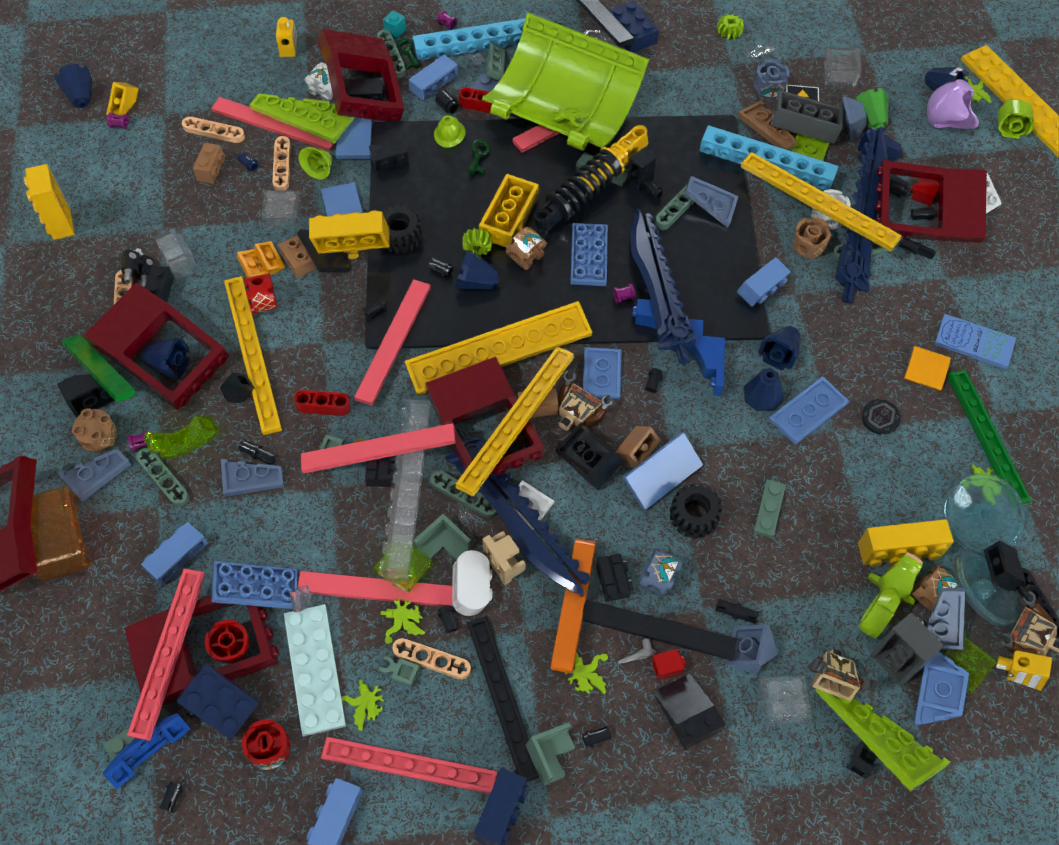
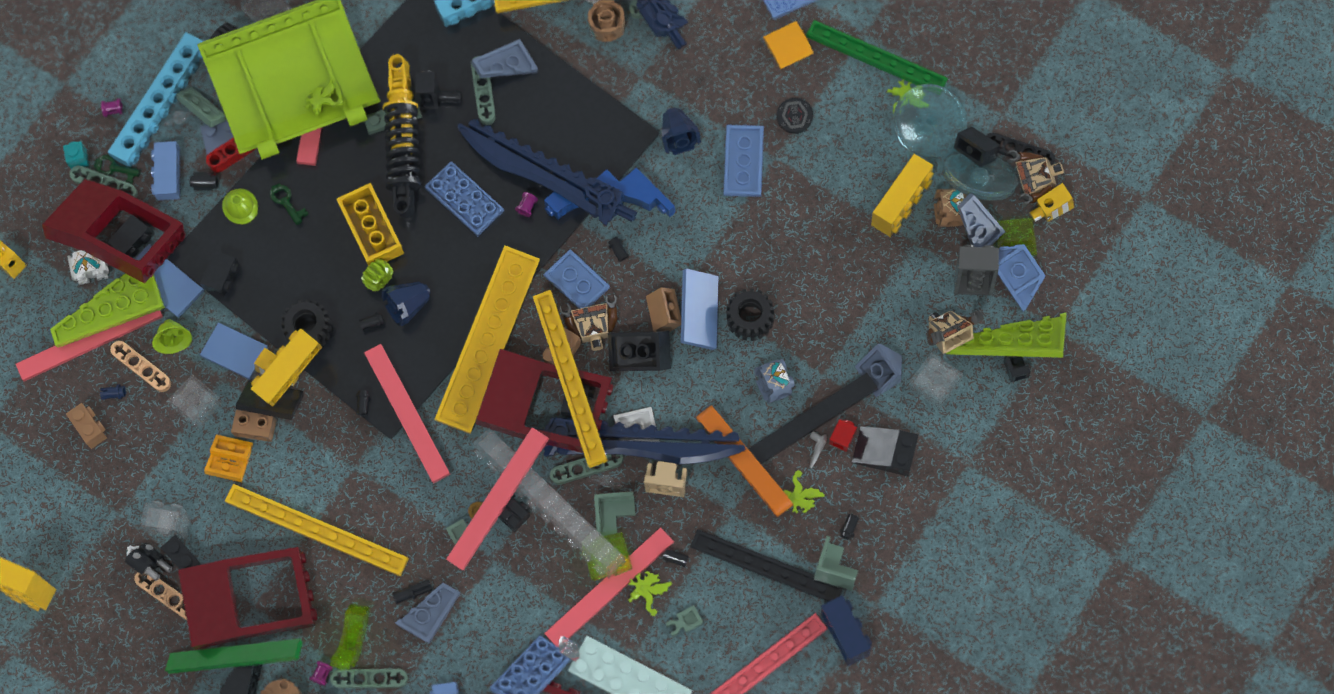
camera: 40 degrees left, 10 degrees up
(166, 353) = (259, 598): dark blue cone -> none
(214, 128) = (46, 392): light nougat beam -> none
(236, 387) = (341, 564): black brick -> none
(260, 293) = (268, 480): red brick -> none
(314, 399) = (415, 501): red beam -> none
(366, 700) = (685, 662): lime piece -> none
(433, 655) = (696, 595): light nougat beam -> none
(471, 583) = (664, 518): white brick -> none
(526, 247) = (419, 242): medium nougat brick -> none
(613, 577) = (748, 416): black brick -> none
(737, 611) = (846, 354): black pin -> none
(764, 282) = (613, 92): medium blue brick -> none
(764, 390) = (700, 179): dark blue cone -> none
(769, 508) = (792, 261): sand green plate -> none
(894, 587) = (925, 233): lime animal -> none

